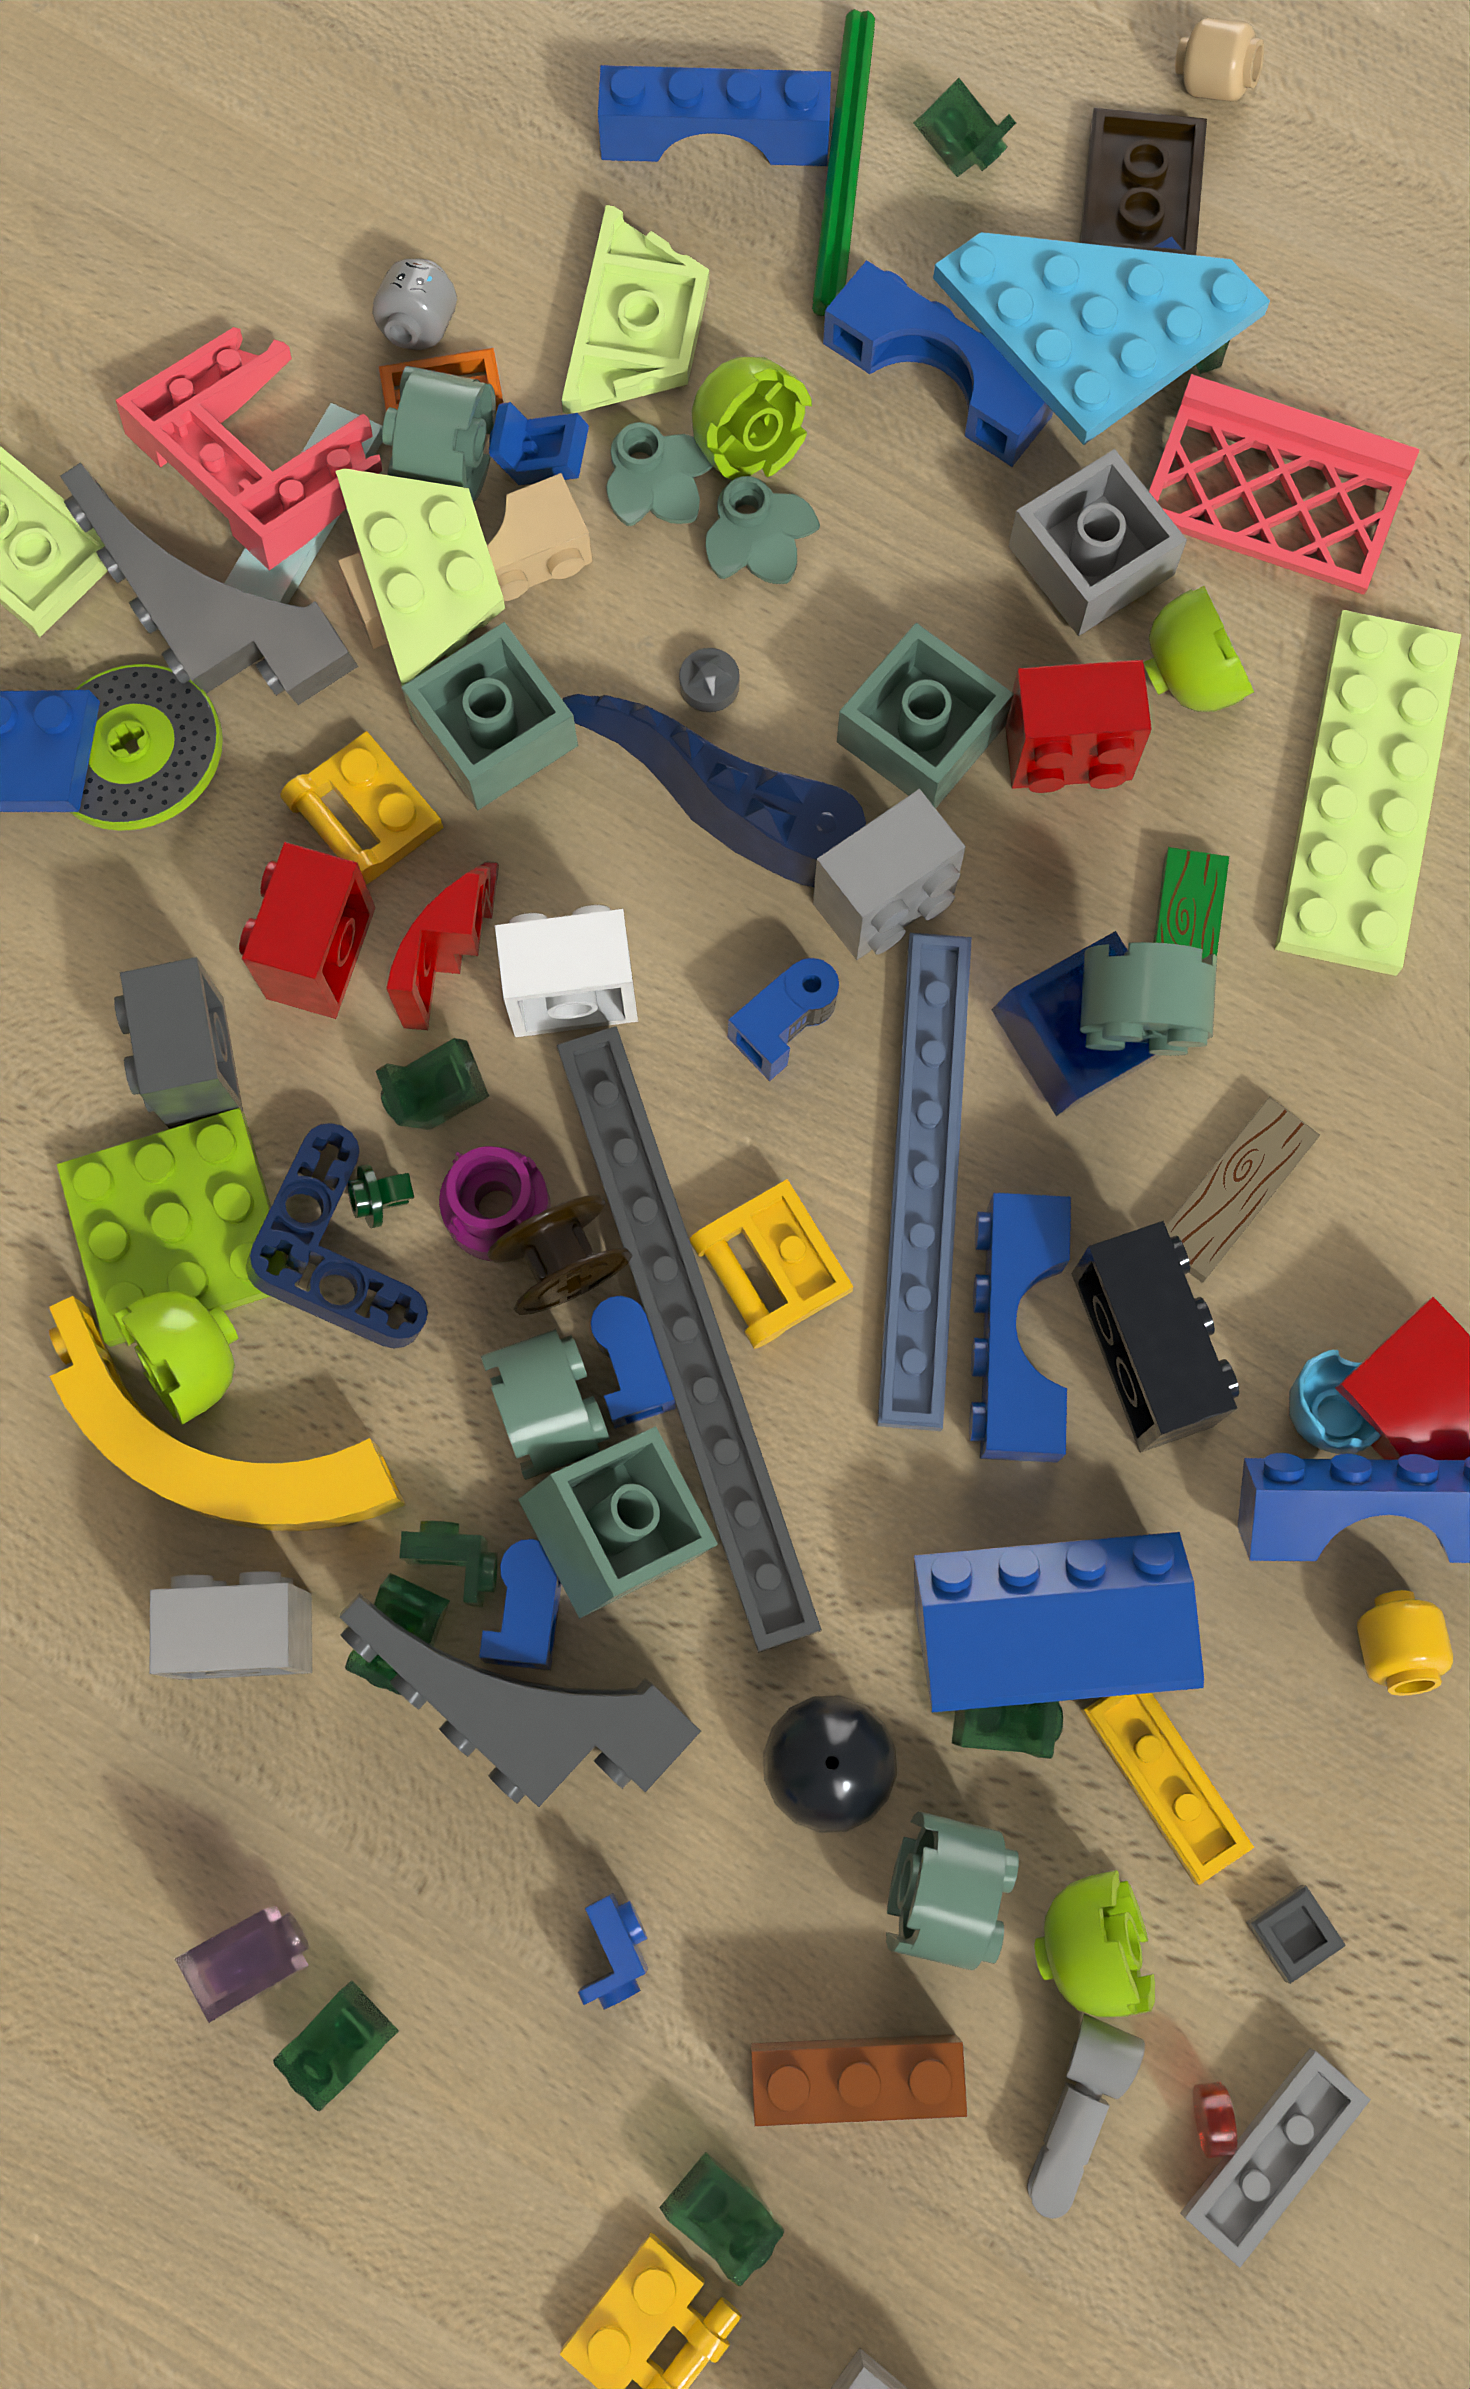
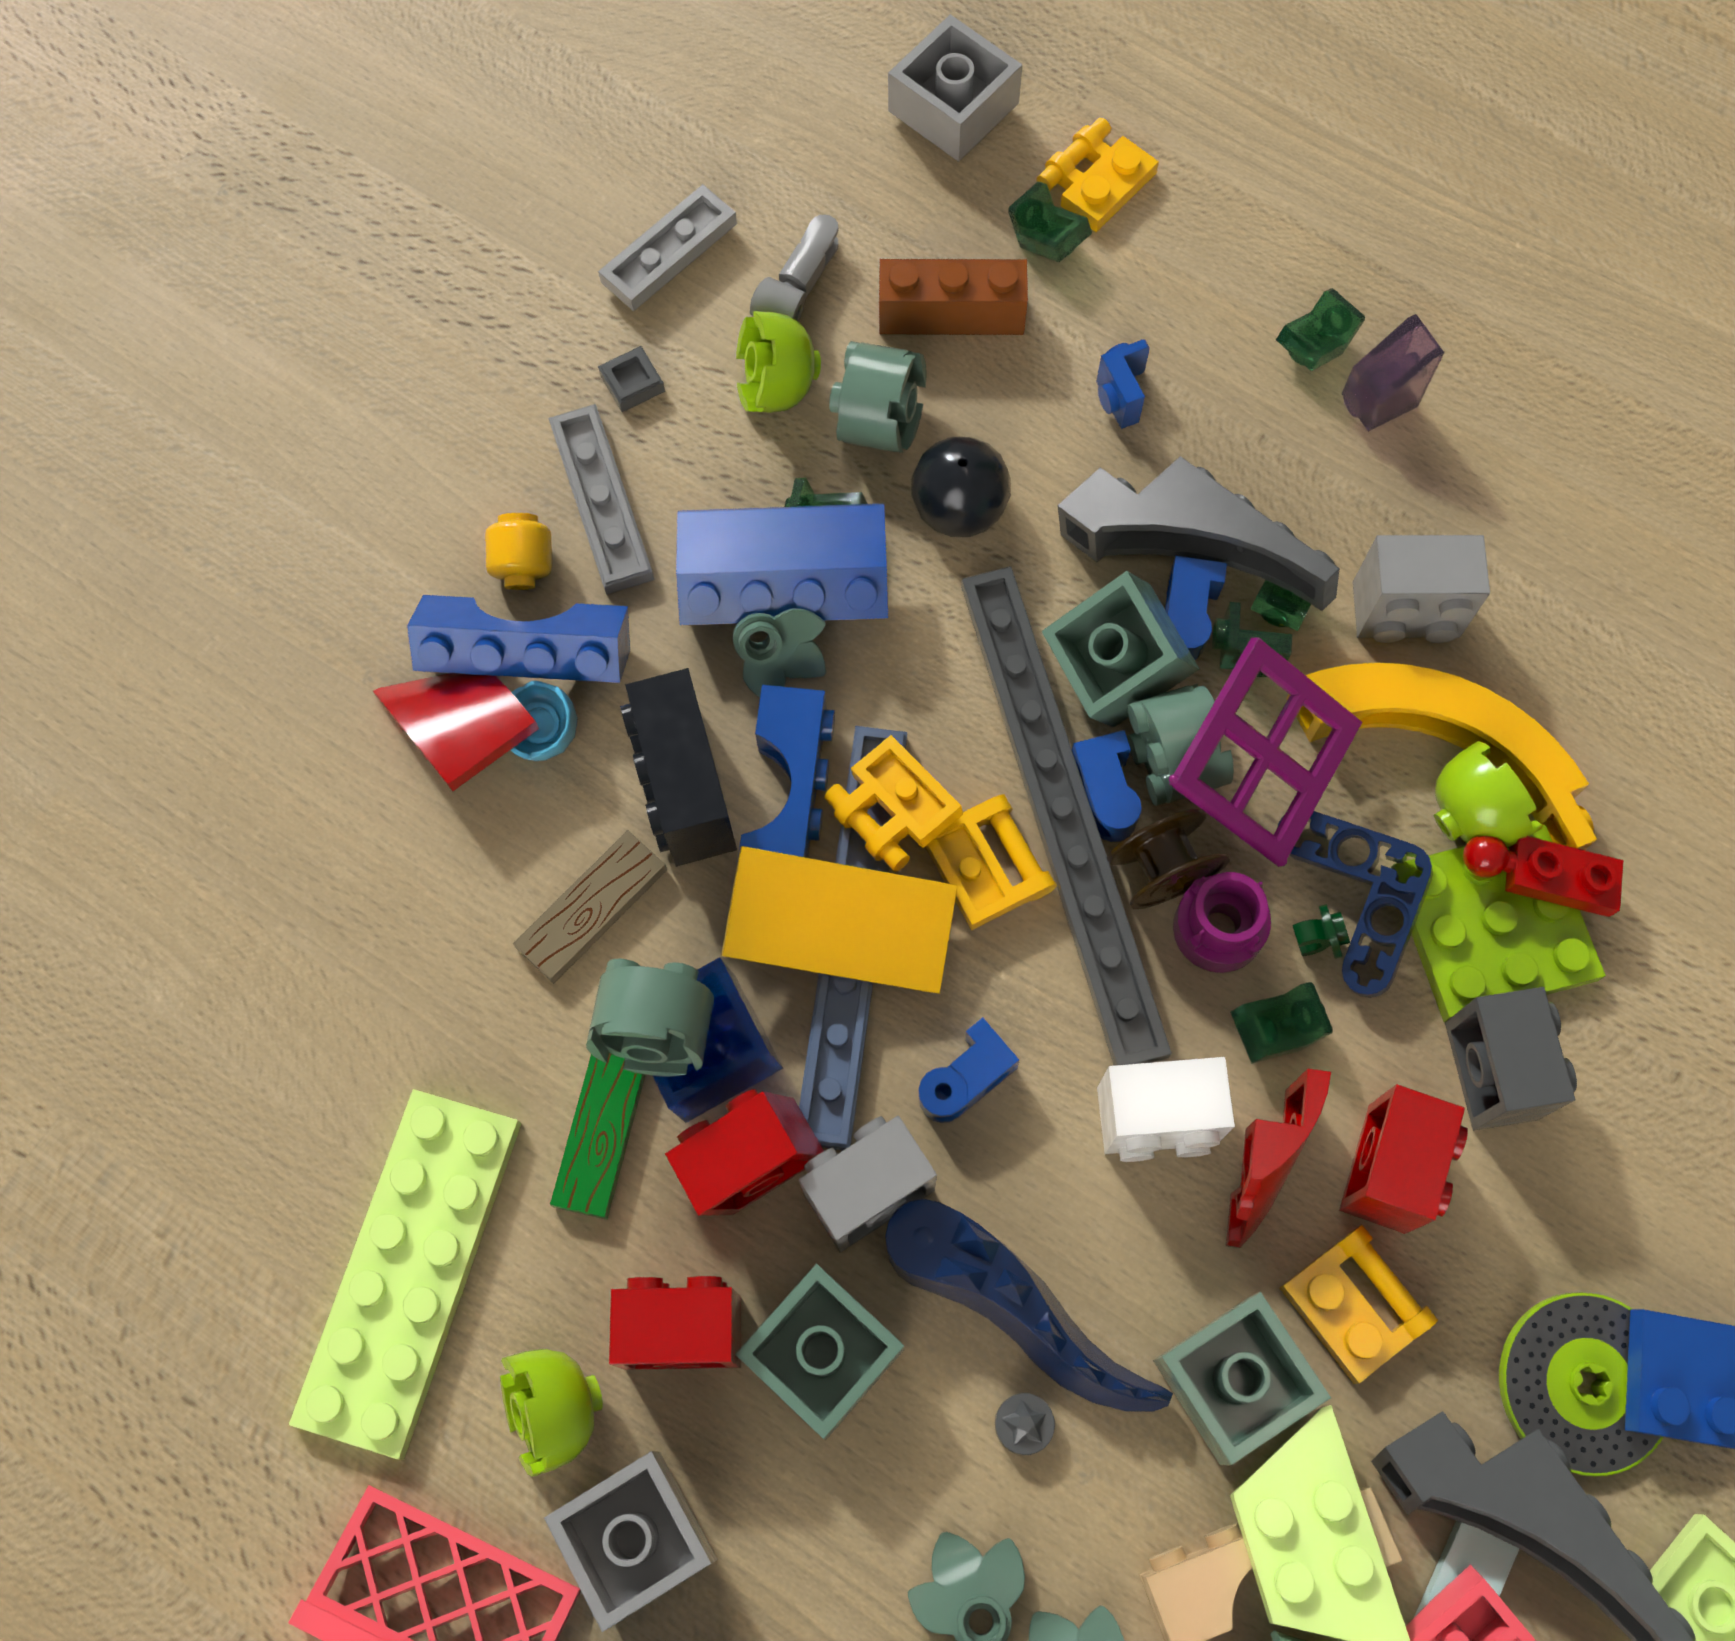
camera: 175 degrees left, 5 degrees down
(107, 1267) = (1550, 872): none -> red plate
(444, 1374) = (1266, 751): none -> magenta window
(877, 1325) = (905, 791): none -> yellow plate
(944, 1163) = (839, 920): none -> yellow tile
(1024, 893) = (743, 1152): none -> red brick
(1059, 1508) = (785, 651): none -> sand green plate
(1169, 1783) = (701, 463): yellow tile -> none
(1215, 2119) = (706, 266): clear red tile -> none
(1310, 1744) = (601, 499): none -> light grey tile

